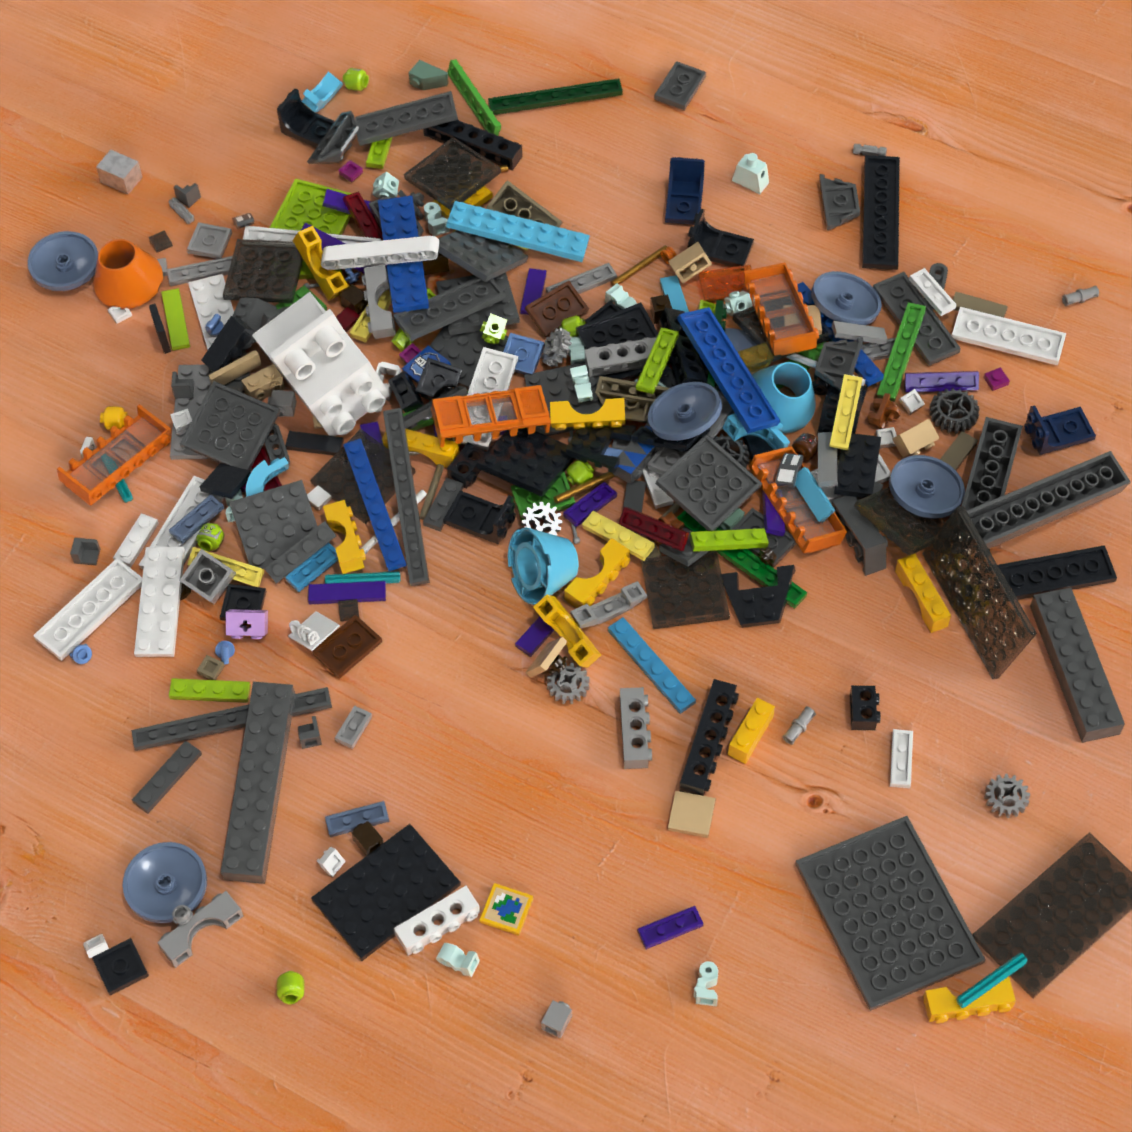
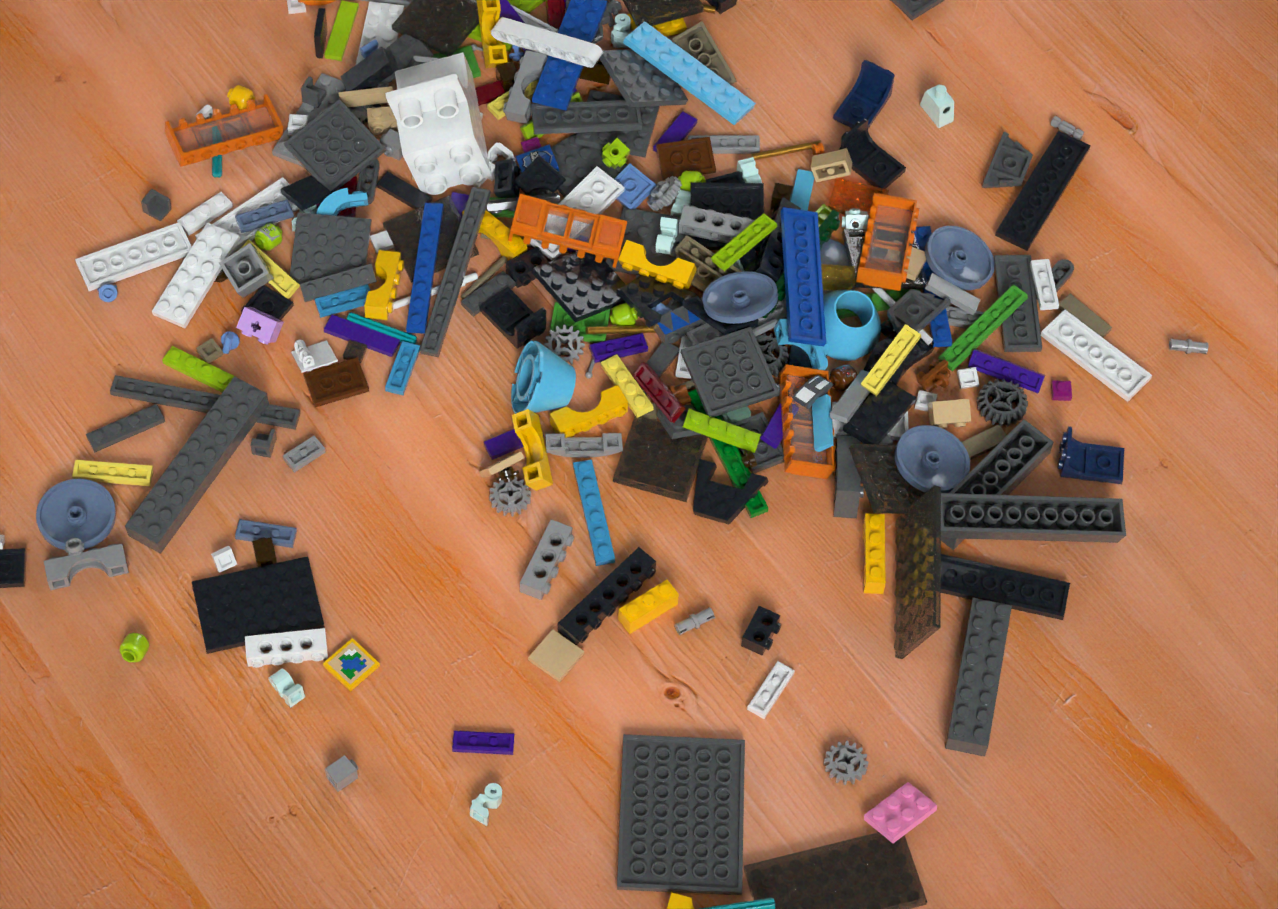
camera: 20 degrees right, 0 degrees up
(178, 825) = (113, 472): none -> light yellow plate
(402, 606) = (402, 368): none -> dark azure plate
(1081, 819) = (900, 812): none -> bright pink plate

